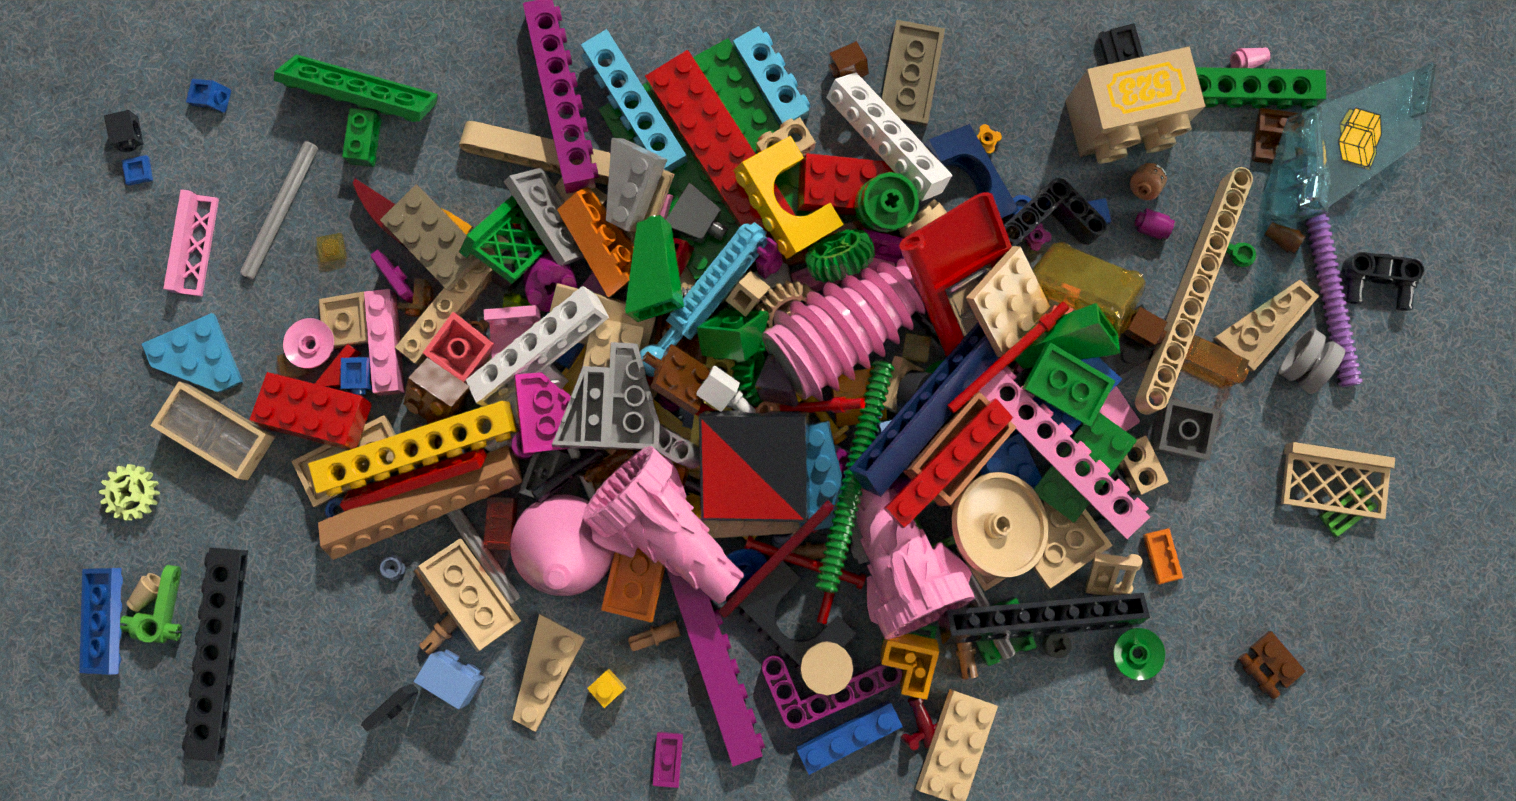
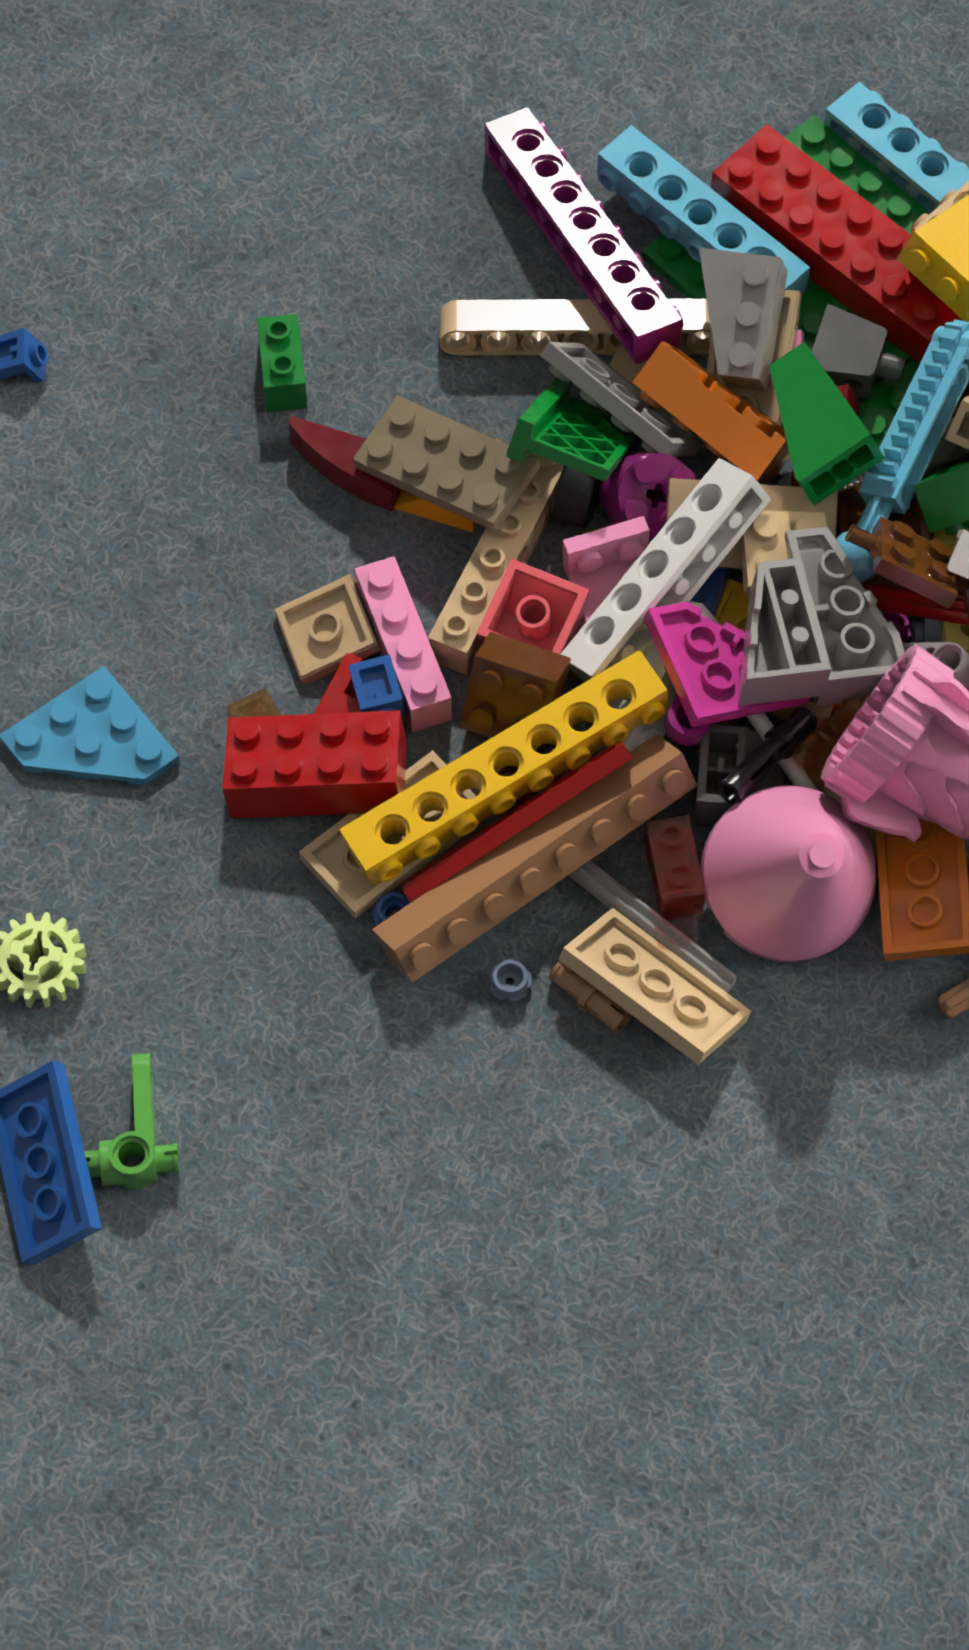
camera: 10 degrees left, 20 degrees down
(144, 592) = (104, 1108): tan cone -> none
(182, 241) = (28, 574): bright pink fence -> none
(213, 431) = (158, 830): clear brick -> none
(229, 615) = (238, 1024): black brick -> none
(278, 210) = (171, 498): light grey axle -> none
(298, 339) = (279, 656): bright pink dish -> none
(331, 247) = (272, 533): clear yellow plate -> none
(356, 87) = (240, 293): green plate -> none
(390, 707) = (578, 1180): black plate -> none
(394, 275) = (390, 535): magenta plate -> none
(422, 294) = (439, 584): clear orange bracket -> none
(439, 634) = (623, 1060): medium nougat pin -> none
(449, 678) = (665, 1113): medium blue brick -> none
(547, 665) = (815, 1074): tan wing -> none
(606, 688) = (928, 1077): yellow brick -> none

